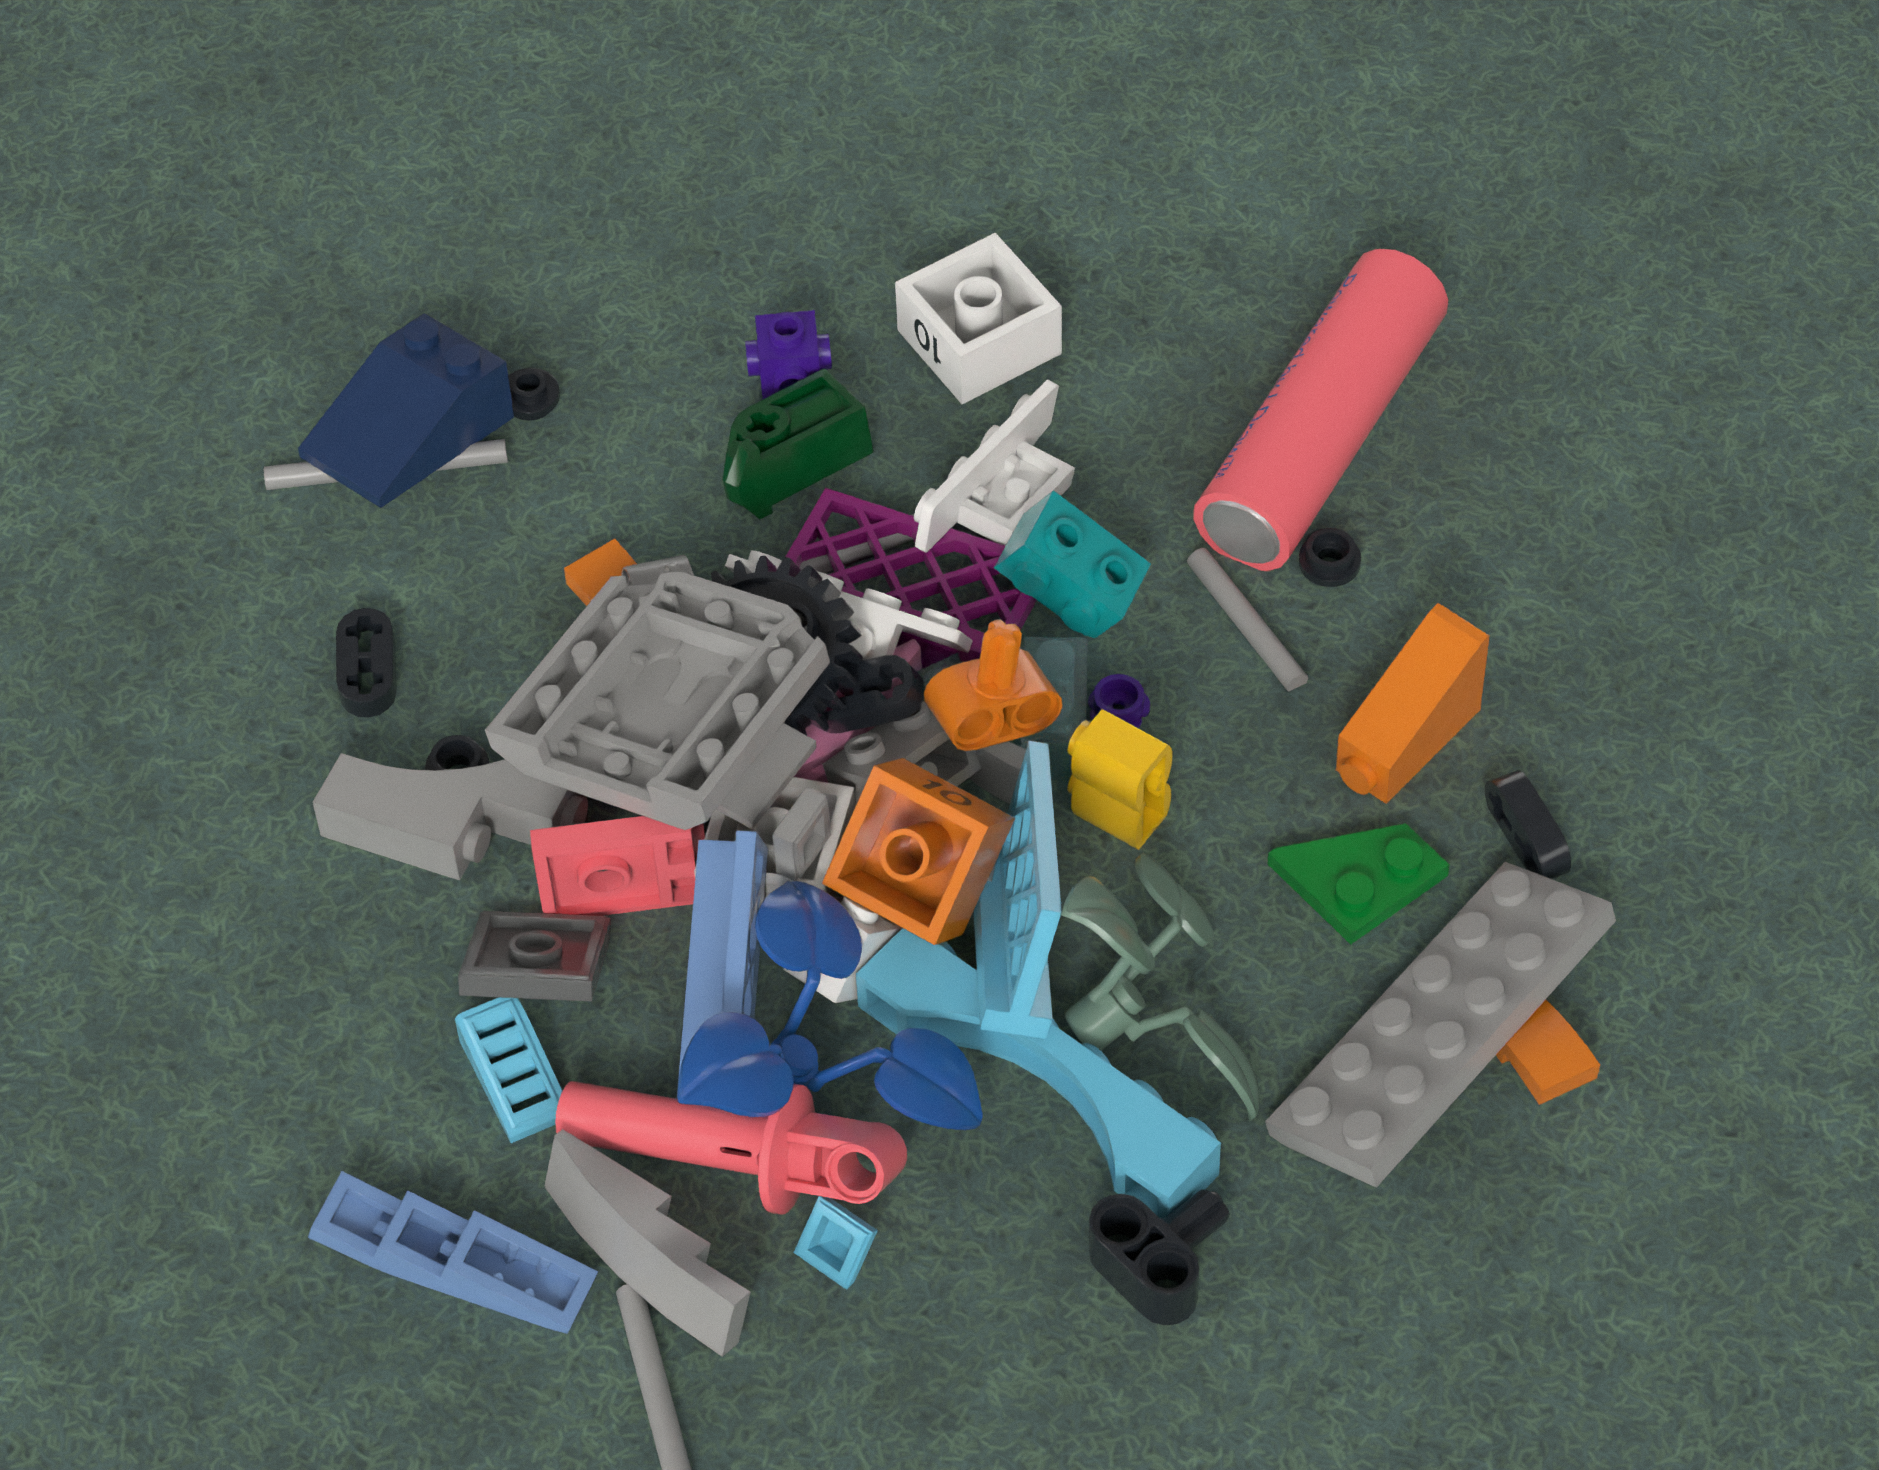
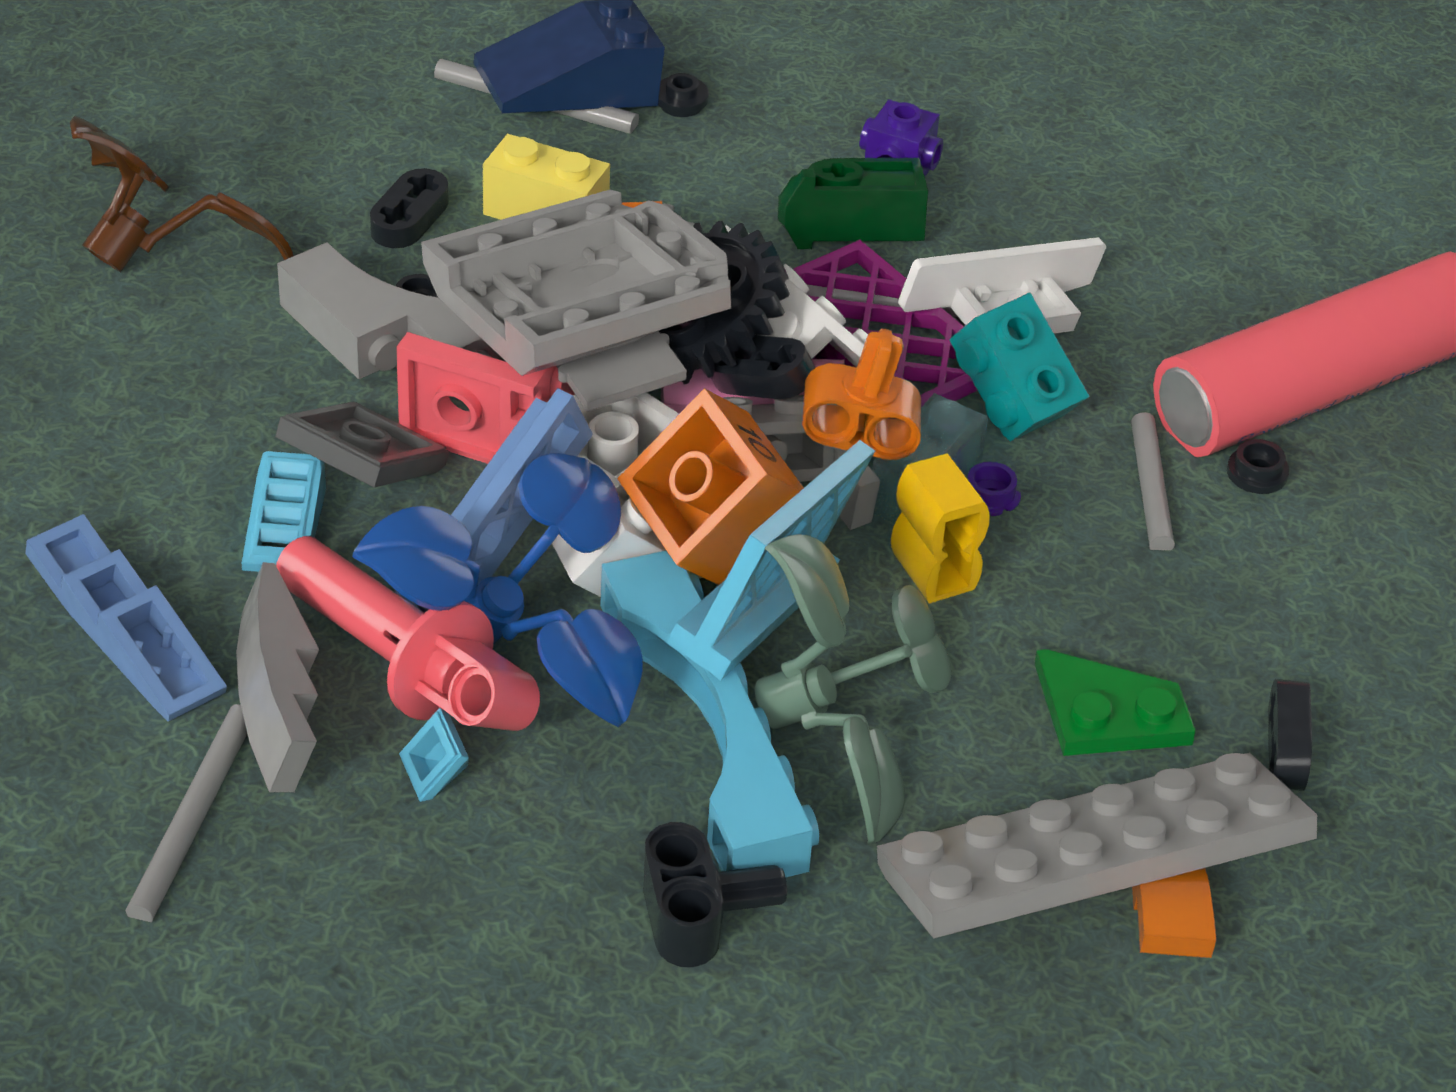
camera: 25 degrees right, 10 degrees down
(116, 835) = (122, 227): none -> reddish brown plant
(491, 578) = (533, 176): none -> light yellow brick
(801, 834) = (622, 429): light grey tile -> none
(979, 318) = (1076, 179): white brick -> none
(1415, 705) = (1247, 593): orange slope -> none

